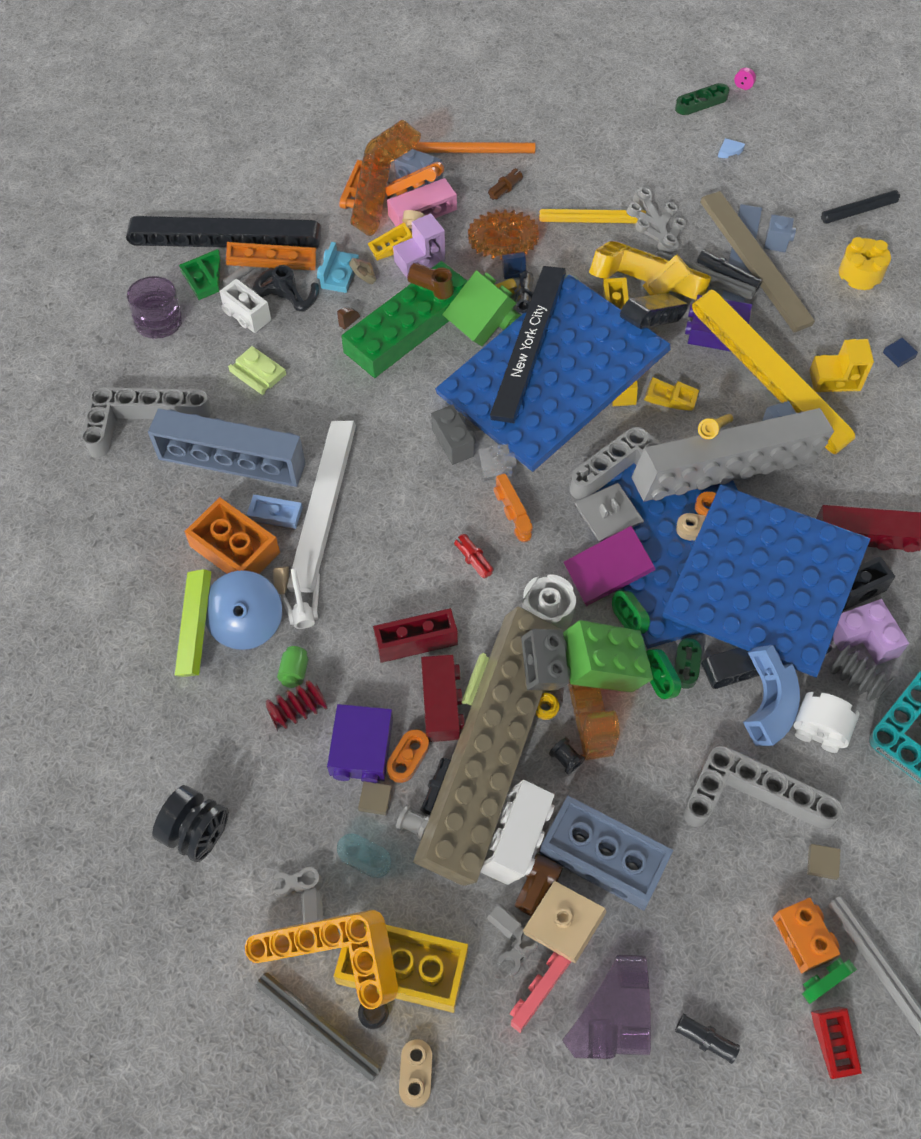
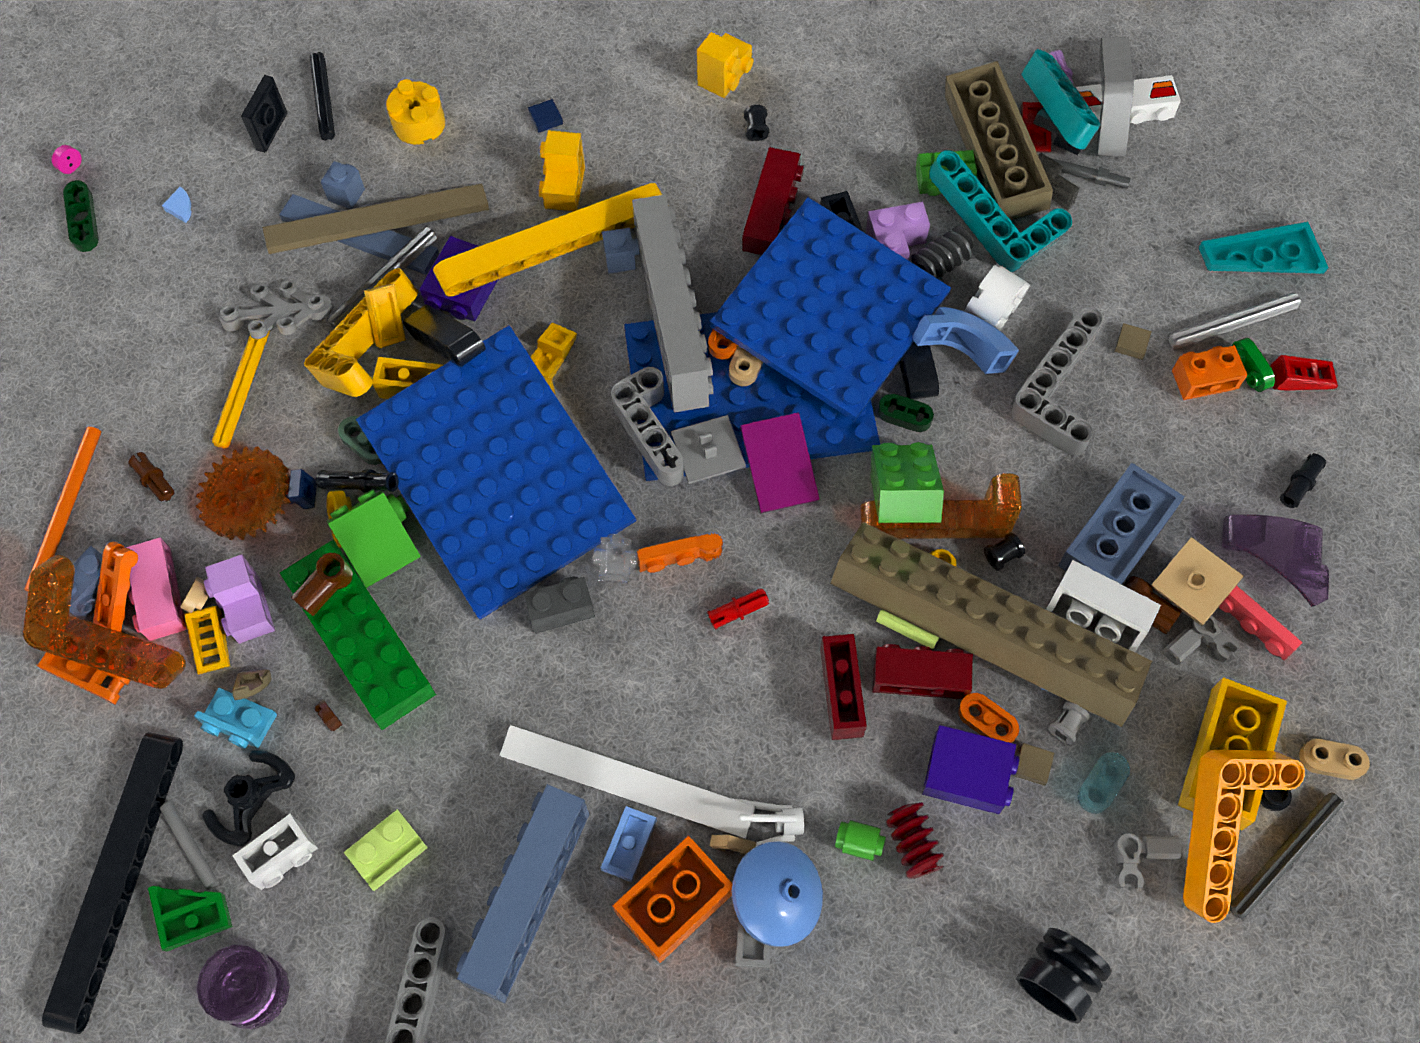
camera: 80 degrees left, 5 degrees up
(193, 623) = (790, 958): lime tile -> none
(270, 256) = (184, 811): orange tile -> none
(434, 786) = (1027, 692): black pin -> none
(528, 345) = (455, 485): black tile -> none
(545, 659) = (913, 541): dark grey brick -> none
(550, 599) = (822, 533): white brick -> none
(630, 611) = (842, 453): green plate -> none
(665, 679) = (919, 433): green plate -> none
(711, 427) = (657, 303): yellow piece -> none
(721, 266) = (379, 255): black pin -> none
(822, 170) = (264, 114): none -> black tile

